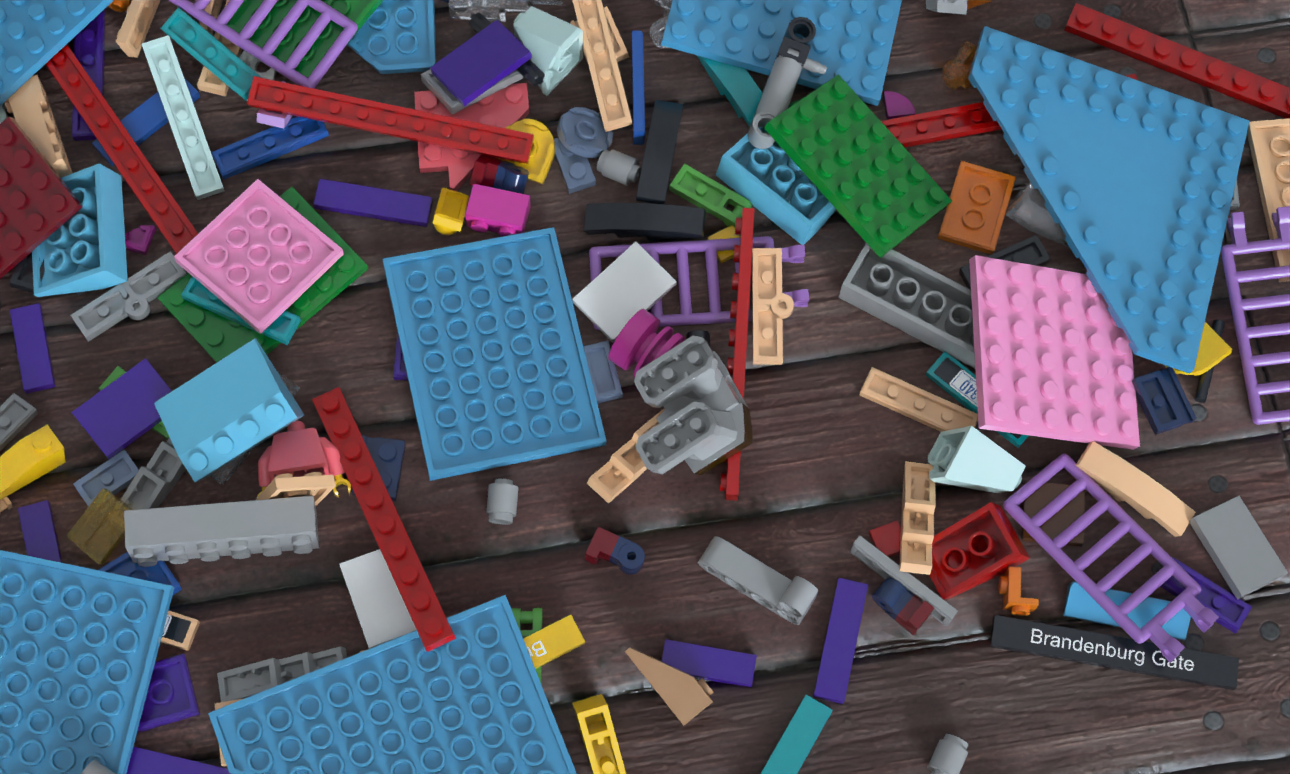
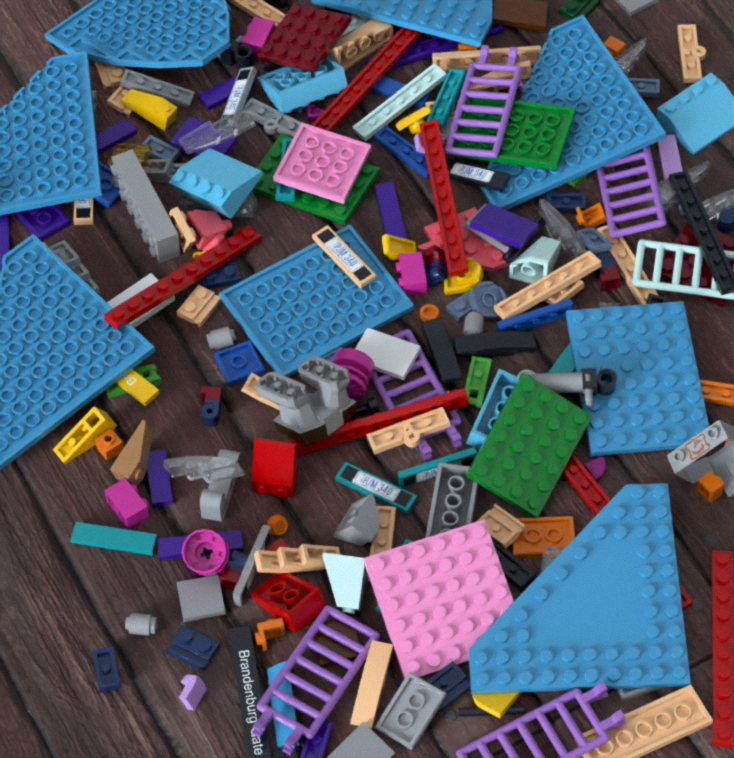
camera: 75 degrees right, 15 degrees down
(65, 335) = (240, 91): none -> tile
(129, 382) = (216, 133): none -> clear slope
(225, 110) = (413, 120): none -> yellow tile
(369, 63) = (477, 175): none -> tile
(426, 514) = (199, 306): none -> light nougat plate
(439, 286) = (344, 256): none -> tile
(551, 492) = (238, 363): none -> blue tile
(569, 215) = (429, 312): none -> orange tile
(628, 725) = (109, 444): none -> orange plate
(741, 718) = (127, 503): none -> dark pink brick
(743, 584) = (205, 467): none -> clear slope
(774, 499) = (274, 468): none -> red slope
(829, 382) = (381, 490): none -> tile
(831, 293) = (429, 469): none -> teal tile
(848, 528) = (277, 524): none -> orange plate
(885, 419) = (360, 522): none -> light grey slope
(892, 630) = (194, 550): none -> dark pink wheel
(927, 666) = (201, 598): none -> light grey tile
(950, 248) = (502, 525): none -> light nougat plate
(1001, 701) = (193, 648): none -> dark blue plate
(1076, 719) = (192, 692): none -> lavender tile
(1188, 455) = (410, 711): none -> light grey tile

